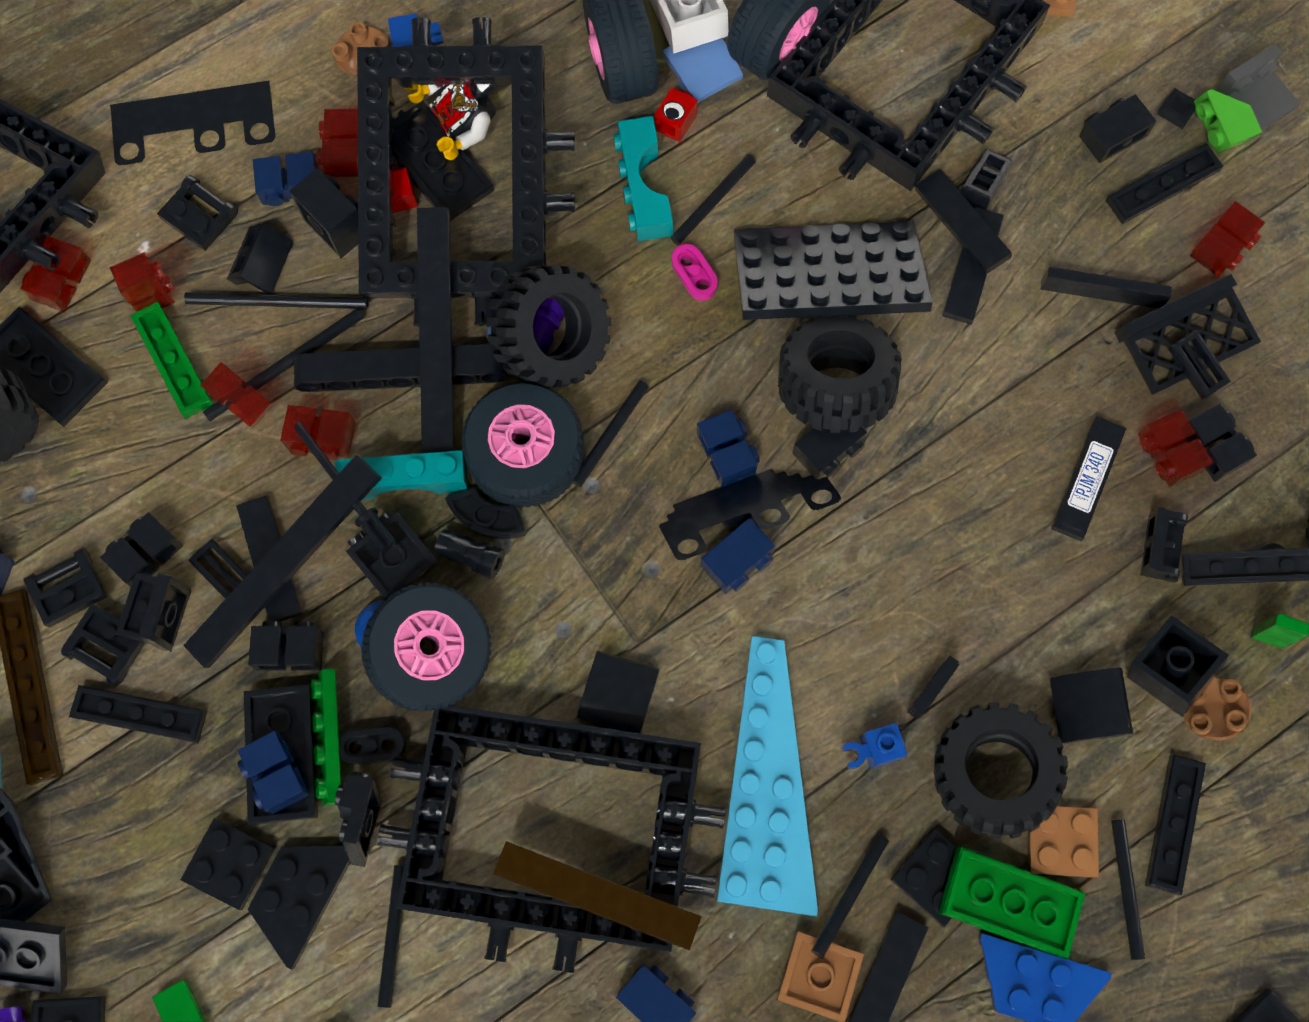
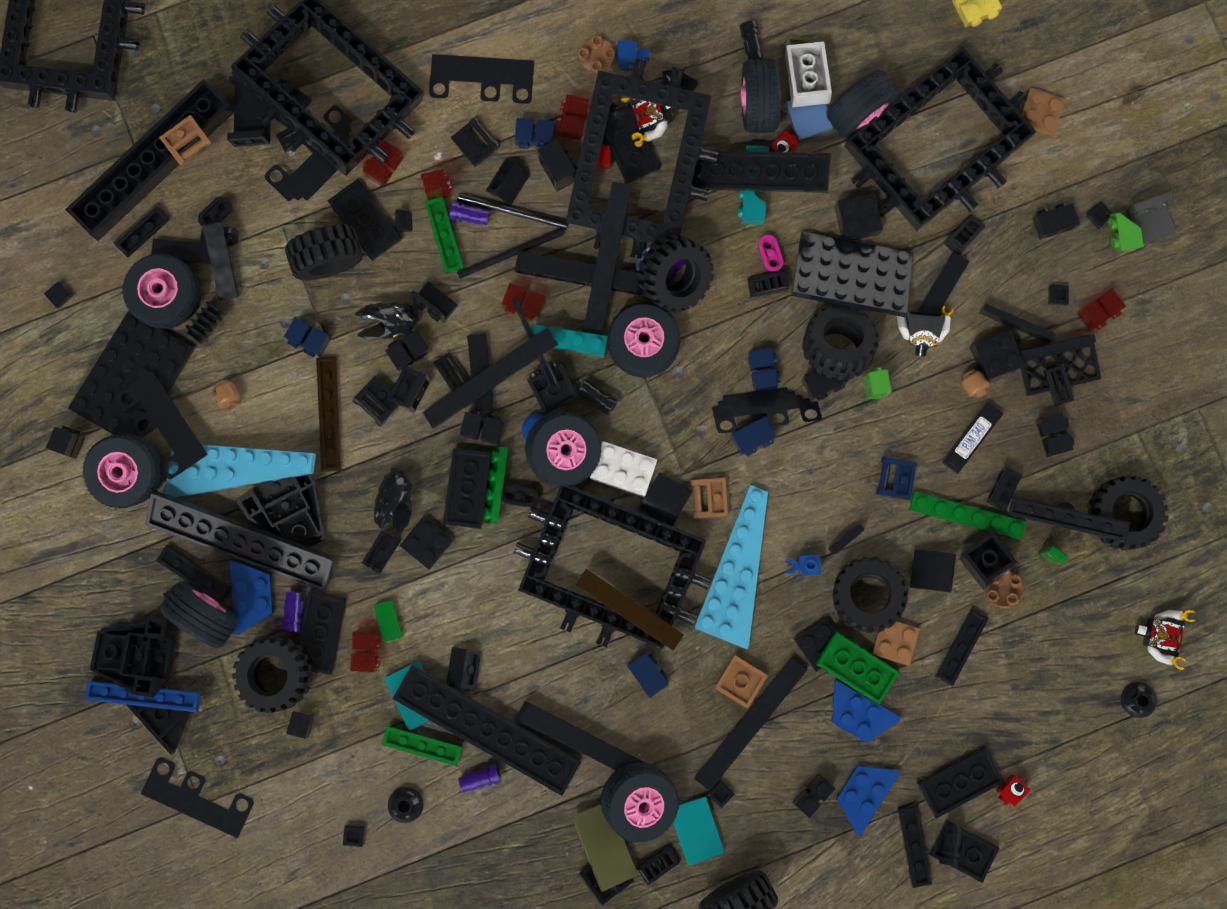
camera: 10 degrees right, 10 degrees up
(69, 595) = (361, 367): black plate -> none
(102, 353) = (403, 221): none -> black slope
(109, 503) = (393, 317): none -> black head
(138, 714) = (389, 446): black tile -> none
(148, 899) = (380, 552): none -> black hinge
(157, 794) = (394, 501): none -> black head
(173, 465) = (436, 302): none -> black bracket
(204, 318) = (469, 213): none -> dark purple axle
(228, 388) = (476, 264): clear red piece -> none
(273, 777) = (458, 490): dark blue piece -> none
(296, 896) = (462, 568): black wing -> none
(359, 808) = (506, 532): black plate -> none
(391, 943) = (510, 604): black bar -> none
(484, 517) = (610, 376): black tile -> none
(537, 659) = (624, 469): none -> white brick
(610, 432) = (693, 345): black bar -> none
(667, 142) = (774, 172): none -> black piece
(698, 309) = (784, 288): none -> black slope
(701, 671) = (715, 498): none -> medium nougat plate
(713, 199) = (787, 212): black bar -> none
(816, 188) = (858, 217): none -> black brick
(849, 896) = (768, 642): black bar -> none
(914, 426) = (877, 384): none -> bright green piece
(963, 221) = (942, 260): black tile -> none
(963, 327) = (924, 328): none -> torso
(997, 566) = (902, 480): none -> dark blue plate
(1069, 392) = (975, 383): none -> medium nougat head
(1090, 343) = (997, 356): none -> black brick
(1118, 603) = (967, 516): none -> green plate
(1128, 890) = (924, 676): black bar -> none
(1154, 234) = (1058, 295): none -> black tile
(1164, 183) = (1075, 263): black tile -> none
(1167, 434) = (1024, 423): clear red piece -> none

